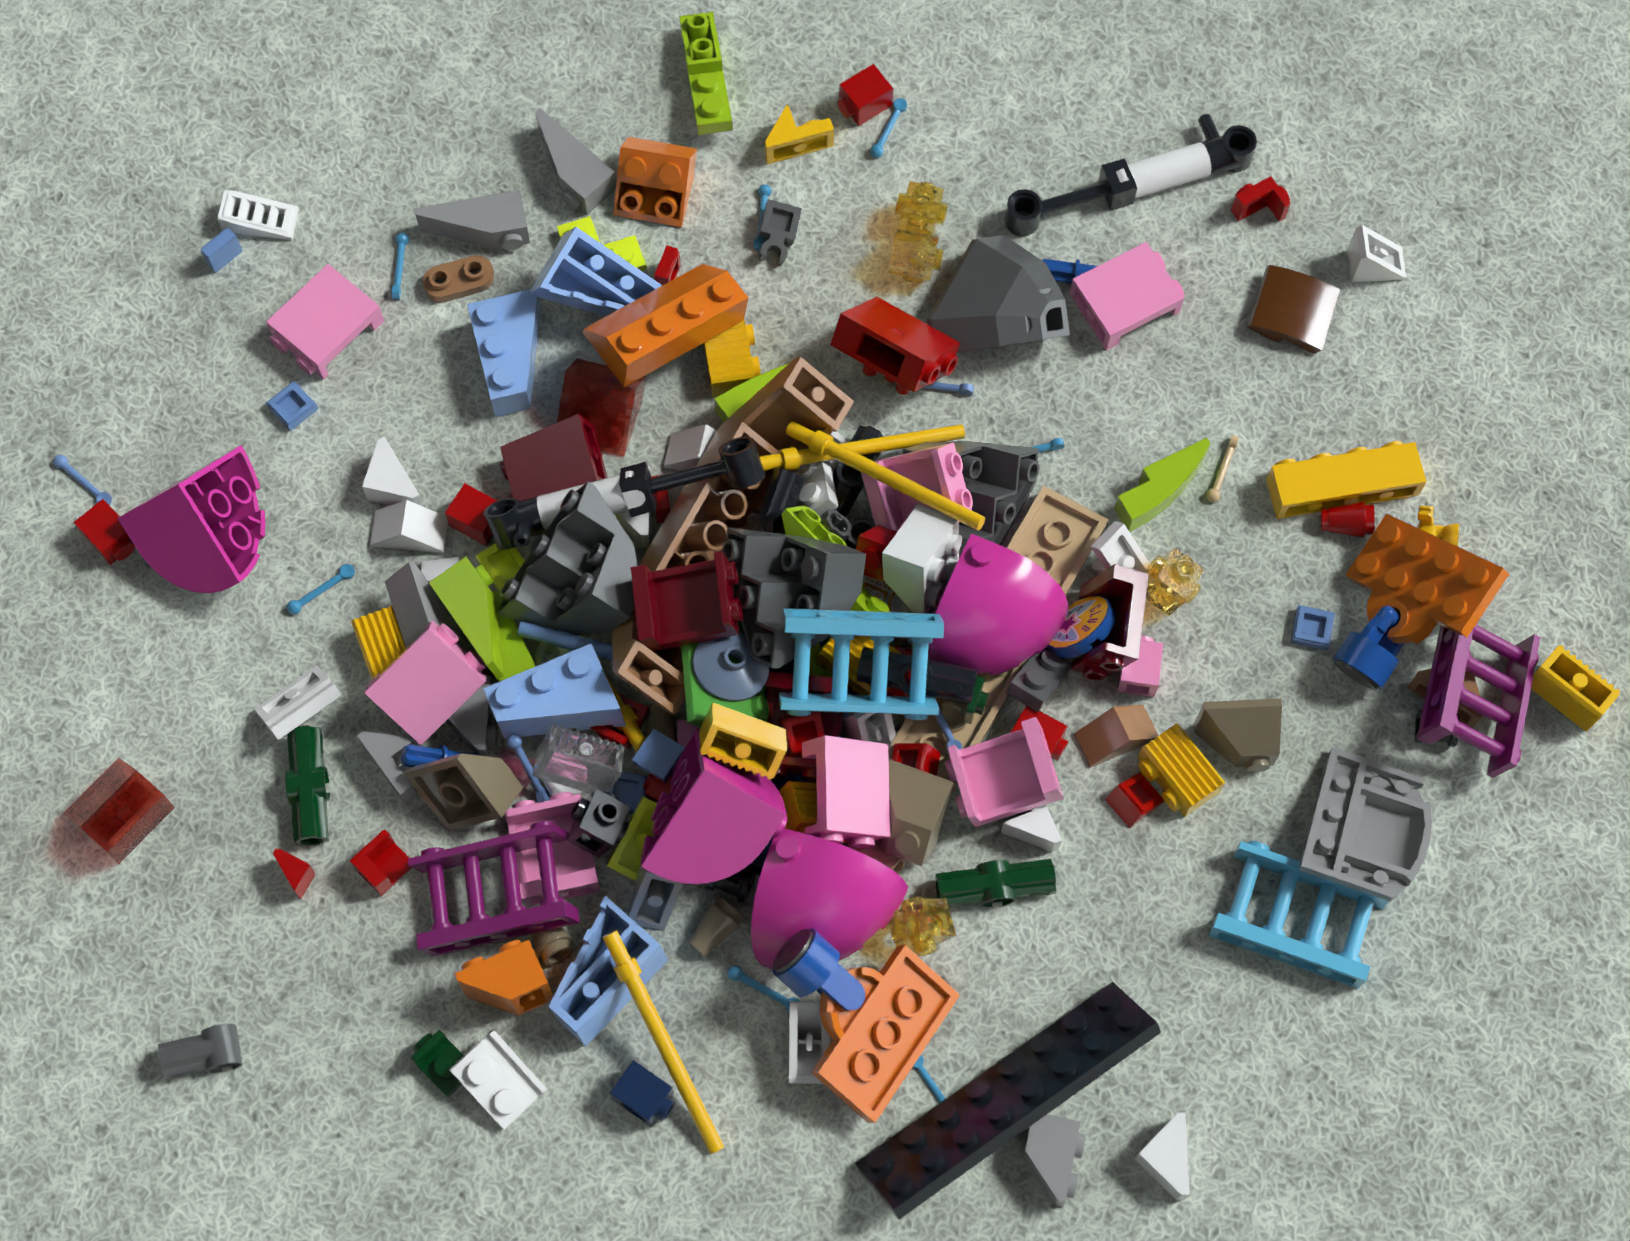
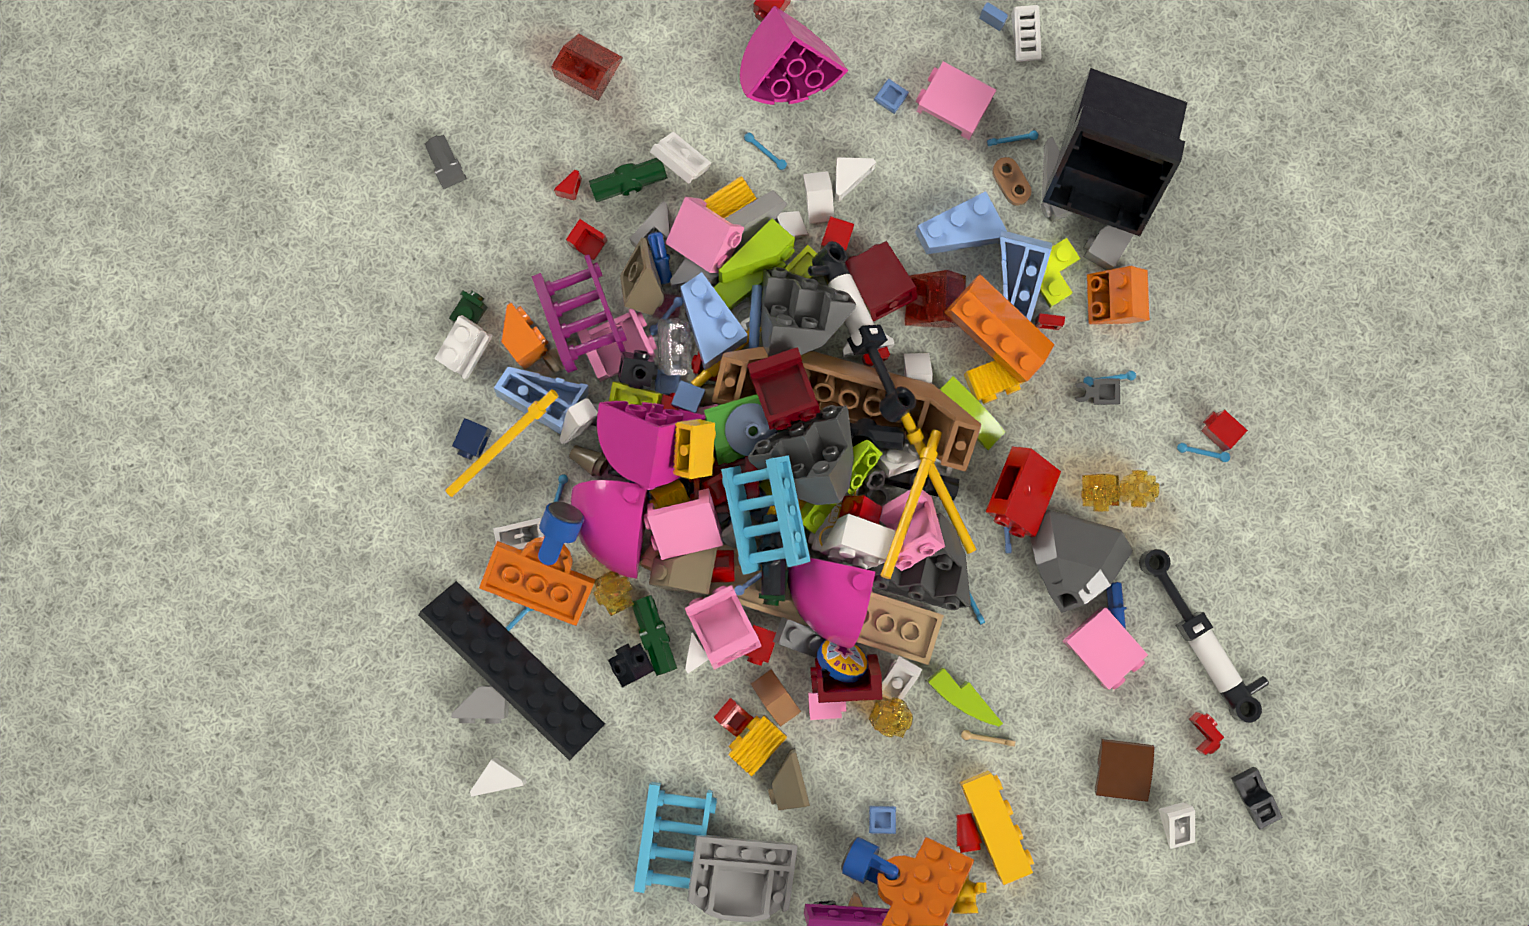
camera: 80 degrees right, 15 degrees up
(464, 124) = (1117, 152): none -> black piece
(655, 917) = (577, 420): none -> white slope
(705, 73) = (1213, 312): lime slope -> none
(791, 141) = (1172, 383): yellow slope -> none
(1032, 922) = (630, 664): none -> black brick
(1360, 162) = (1256, 798): none -> black slope

